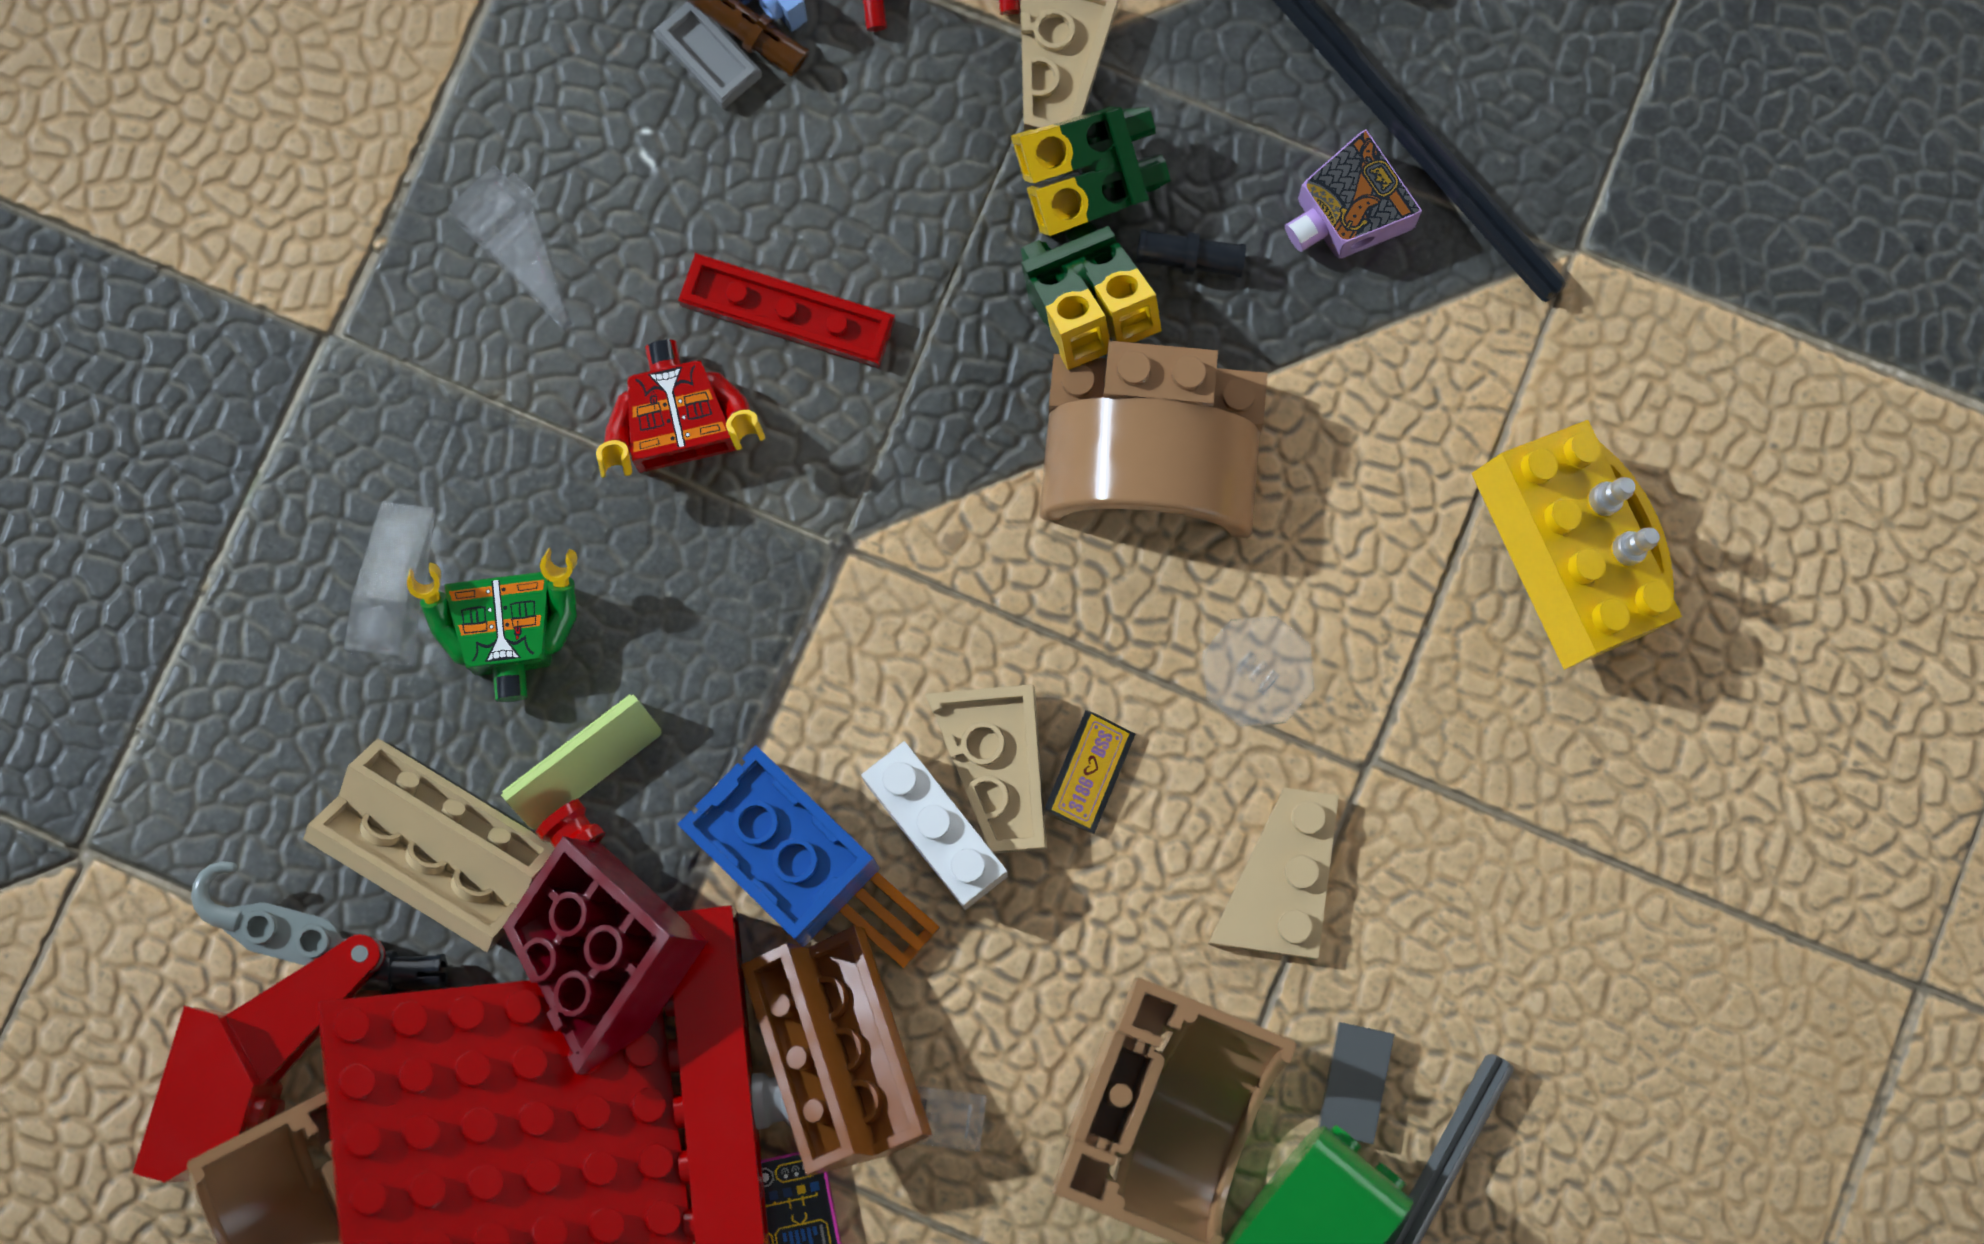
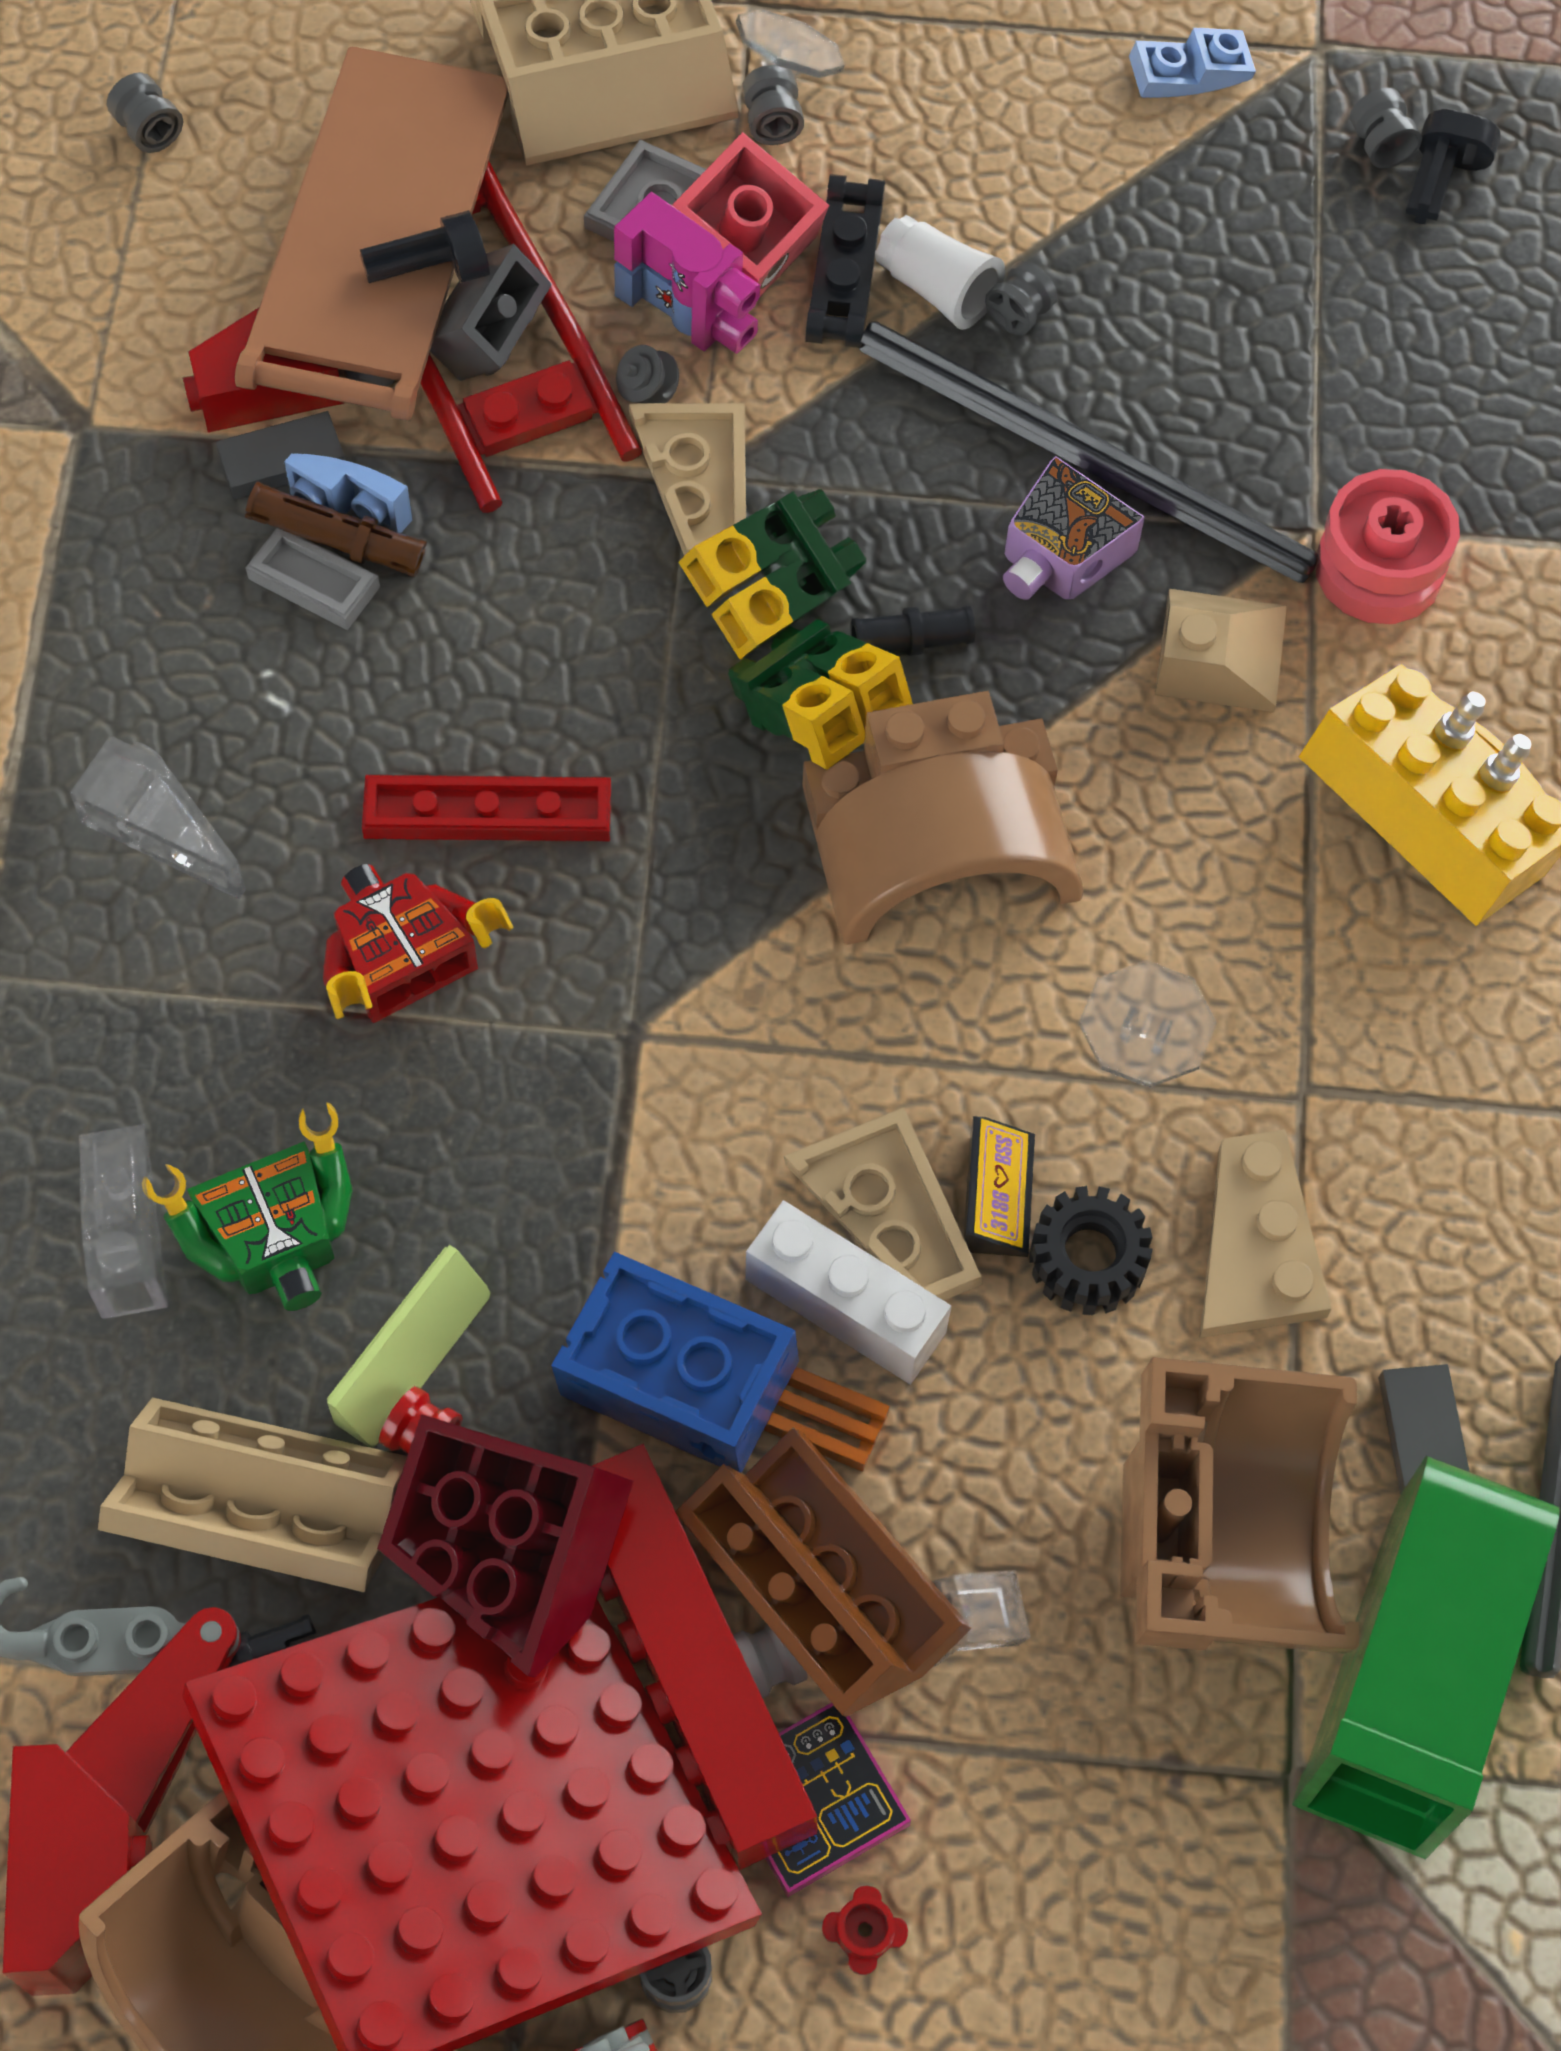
camera: 25 degrees left, 15 degrees down
(1152, 816) = (1096, 1214): none -> black tyre
(1450, 344) = (1221, 650): none -> tan slope
(1621, 266) = (1387, 546): none -> coral wheel

